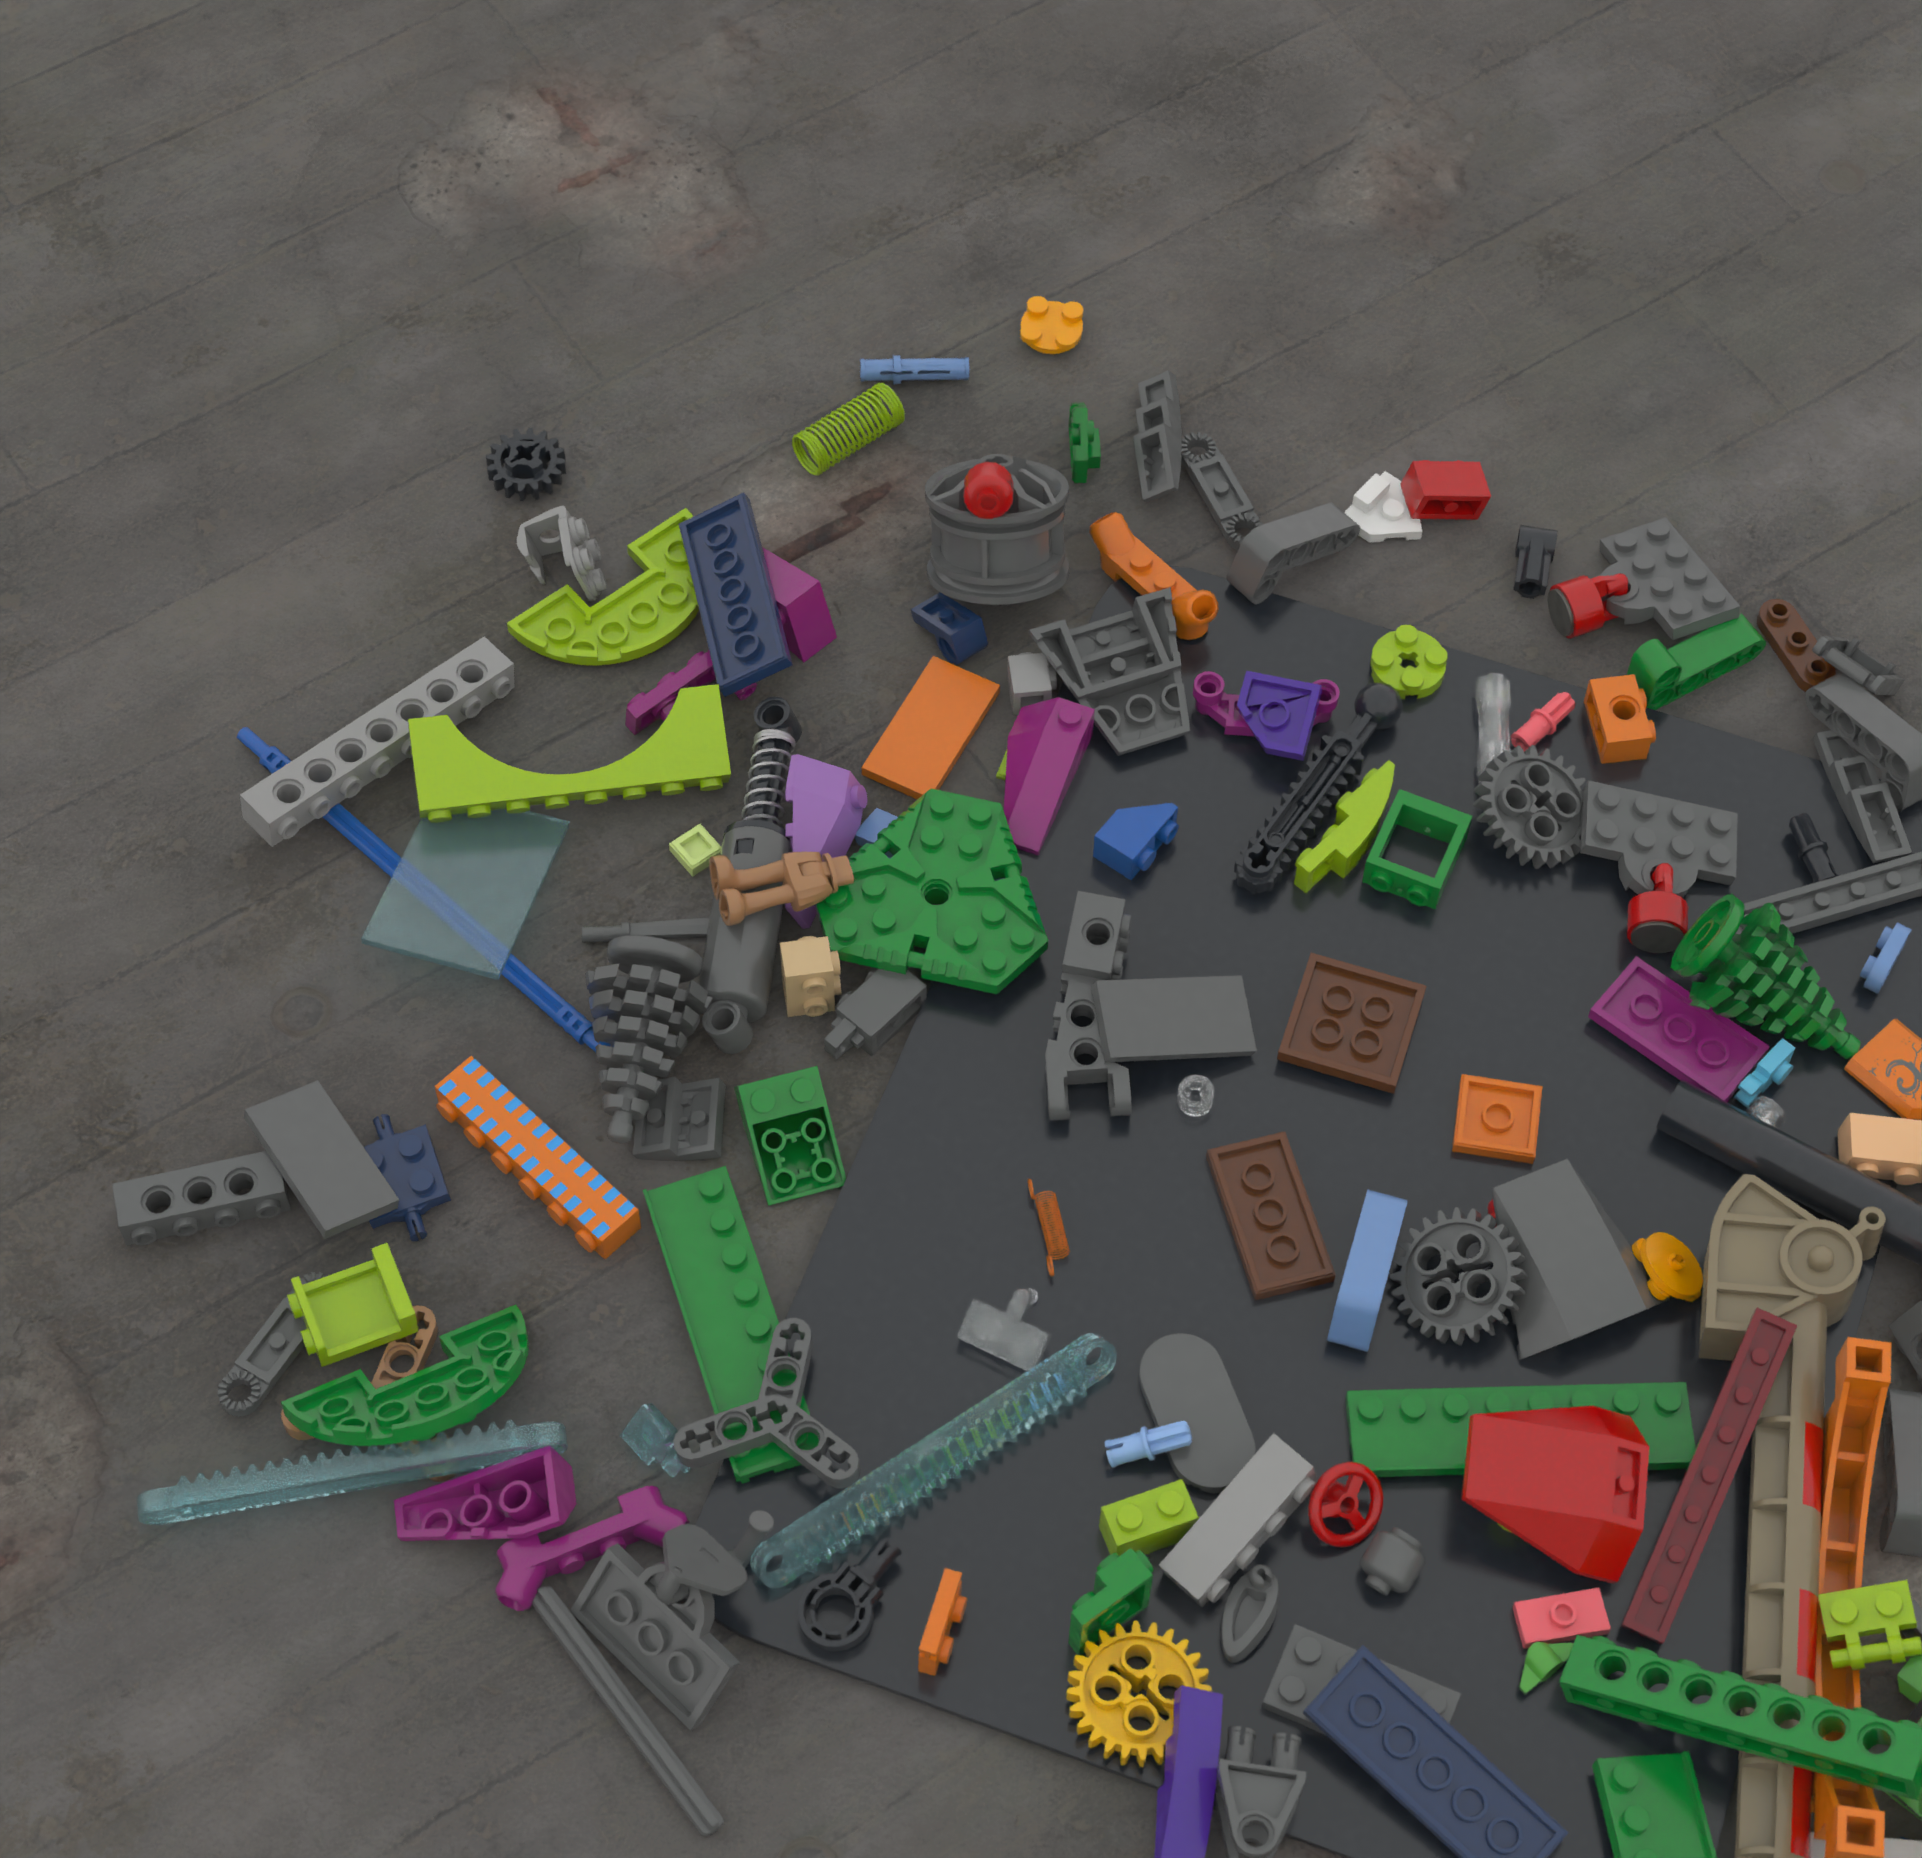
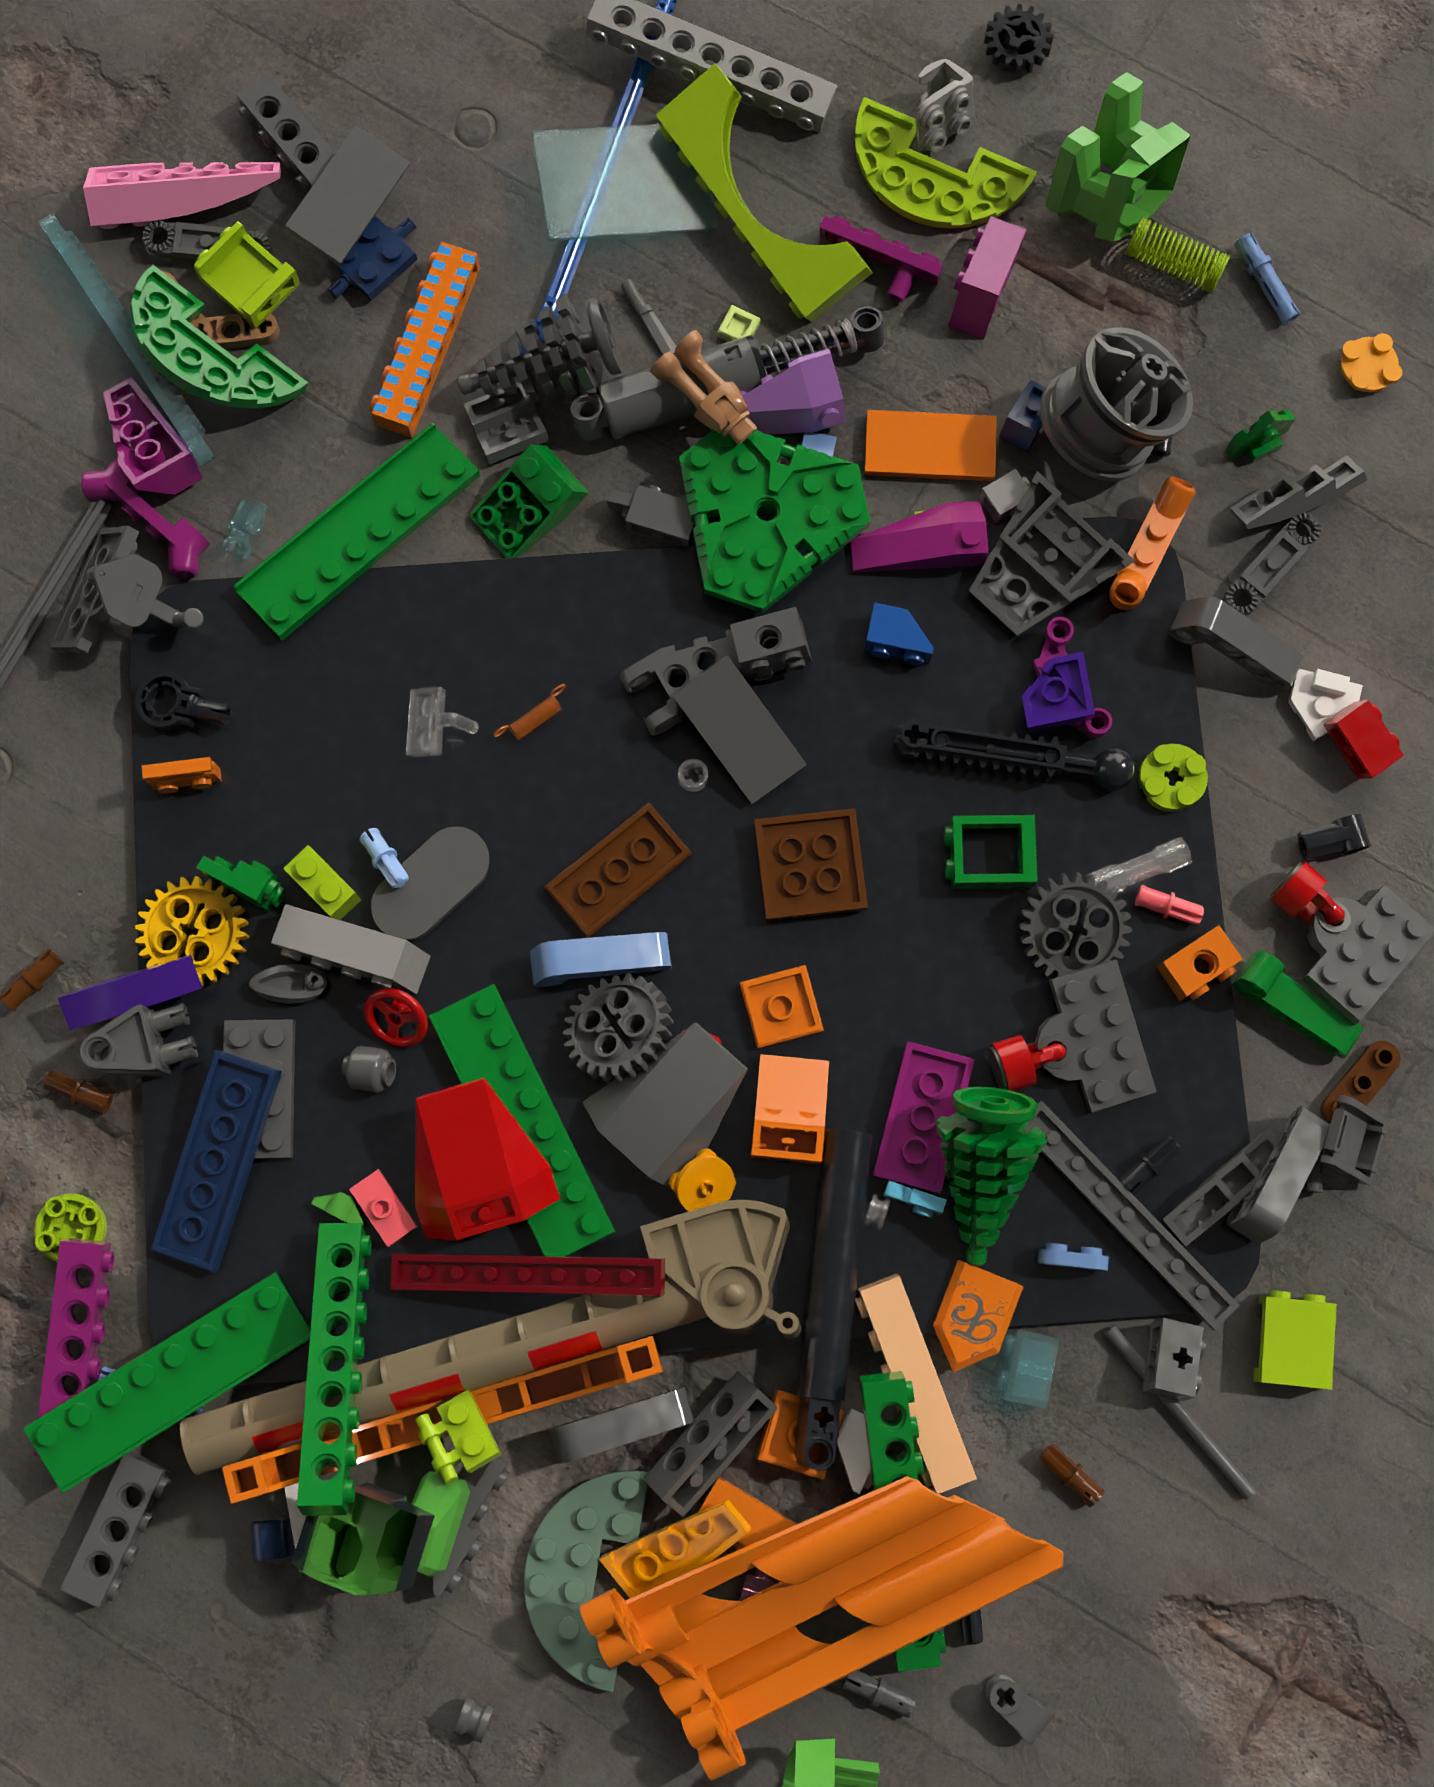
camera: 65 degrees right, 20 degrees up
(176, 1384) = (154, 193): none -> bright pink wedge
(734, 410) = (1142, 161): none -> bright green piece
(735, 595) = (961, 241): dark blue tile -> none
(784, 1434) = (280, 605): dark grey piece -> none
(809, 976) = (655, 452): tan brick -> none
(933, 1461) = (308, 718): clear light blue gear -> none
(988, 490) = (1111, 370): red head -> none
(1354, 830) = (1001, 797): lime slope -> none
(1623, 1150) = (790, 1109): none -> orange slope

